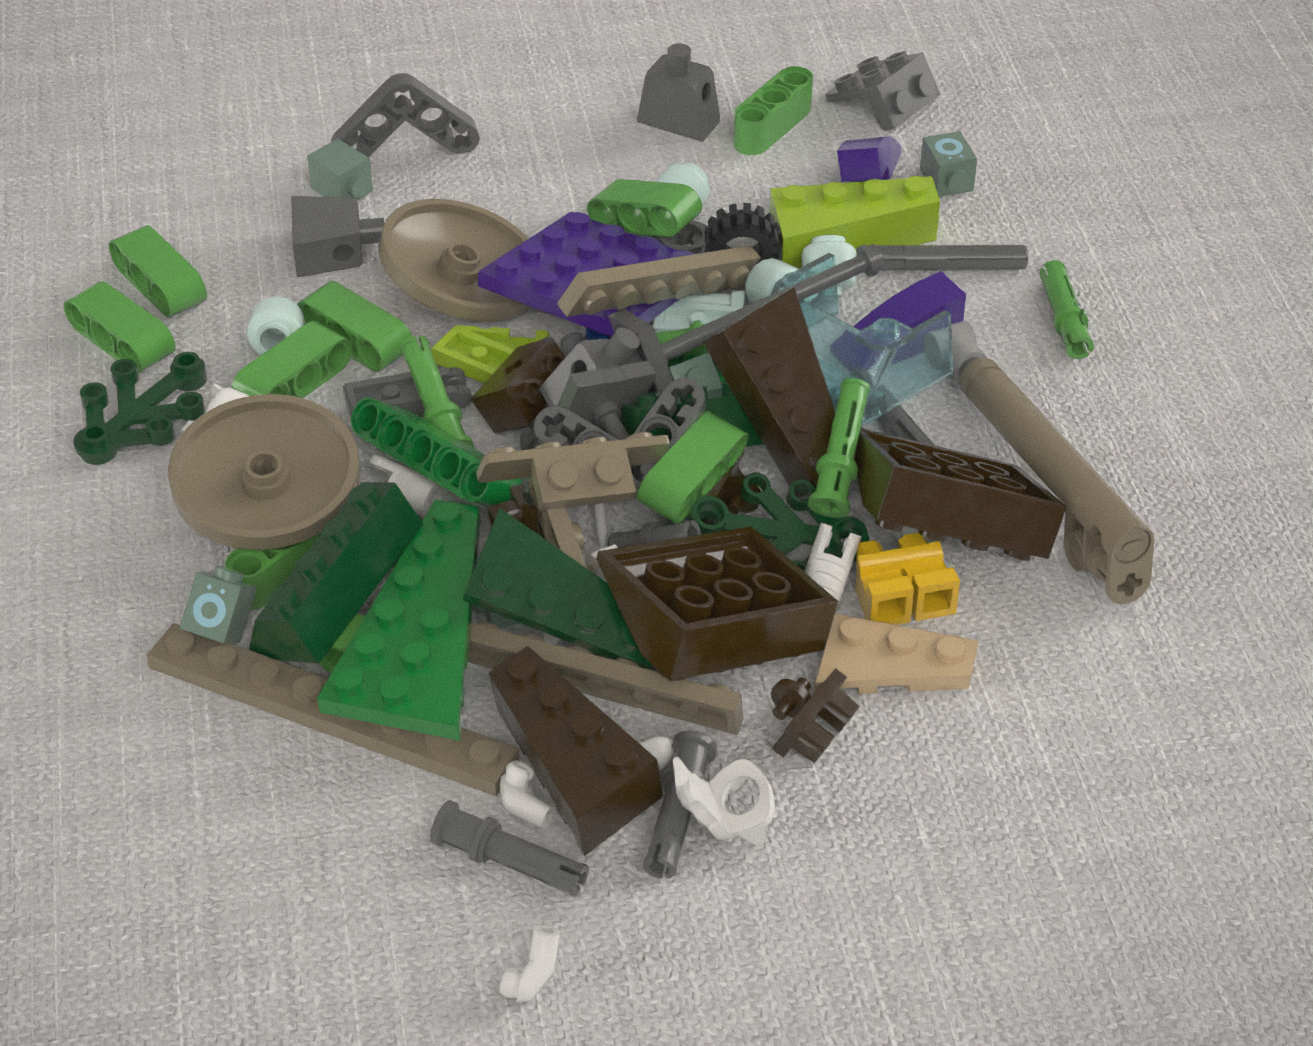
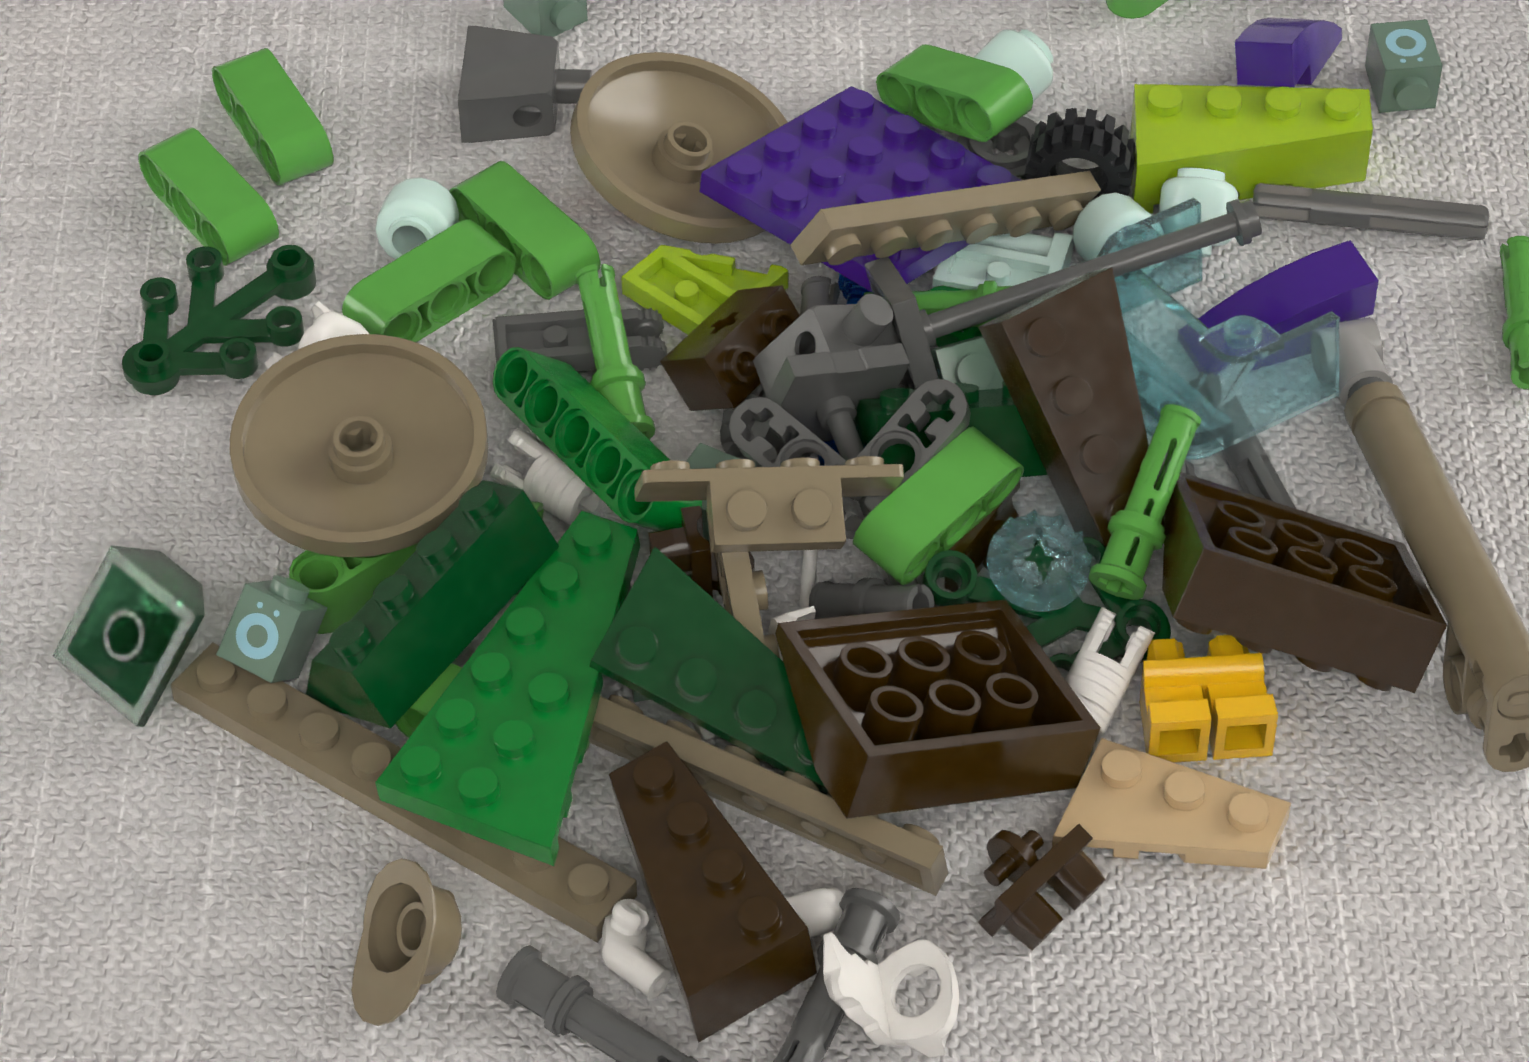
camera: 10 degrees right, 5 degrees up
(112, 620) = (132, 629): none -> clear green slope
(355, 808) = (404, 942): none -> dark tan piece
(759, 510) = (1020, 579): none -> clear light blue gear

